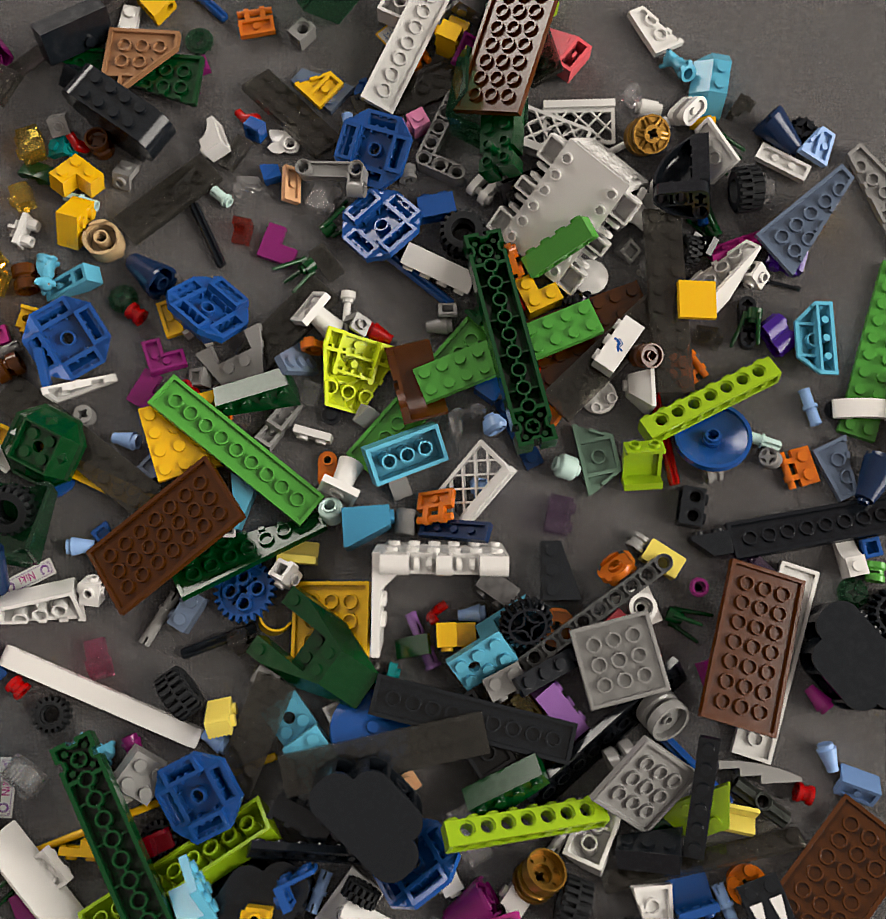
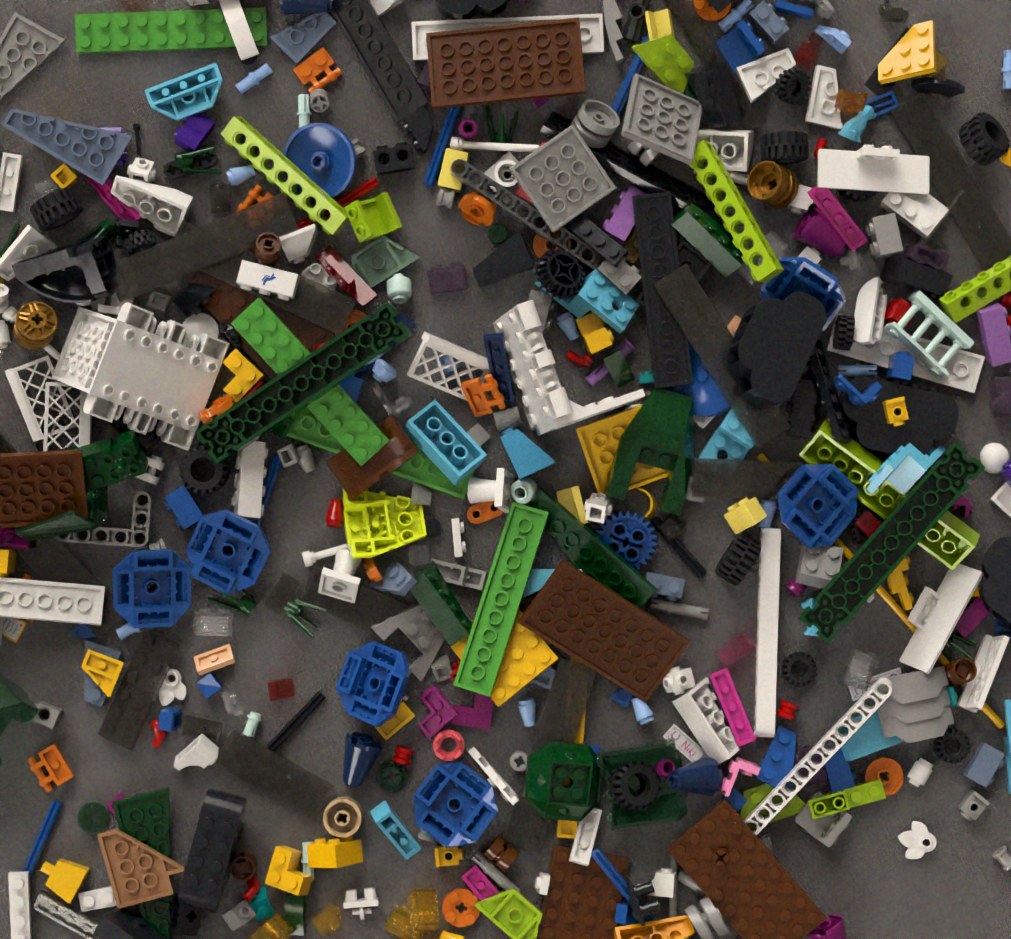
camera: 110 degrees left, 10 degrees up
(13, 544) = (663, 768): none -> magenta cone
(25, 275) = (409, 877): reddish brown wheel -> none
(42, 367) = (492, 811): blue tile -> none
(43, 634) = (732, 707): none -> dark pink plate
(46, 269) = (391, 862): medium azure animal -> none
(122, 349) = (441, 753): none -> coral piece
(123, 174) = (265, 829): light grey bracket -> none
(272, 248) = (287, 653): magenta tile -> none
(336, 171) = (188, 614): light grey piece -> none
(358, 323) = (334, 534): light grey bracket -> none
(417, 122) = (102, 559): bright pink brick -> none
(559, 247) = (194, 369): bright green brick -> none
(585, 579) = (497, 233): none -> dark green tile
(594, 420) = (346, 276): none -> bracket
(622, 279) = (193, 297): none -> black slope
(684, 575) = (460, 144): none -> white piece
(691, 559) = (441, 146): none -> blue axle
(696, 300) = (194, 220): yellow tile -> none
(701, 797) = (653, 66): black plate -> none
(723, 361) = (239, 174): none -> light blue cone
(772, 210) = (64, 176): none -> yellow brick

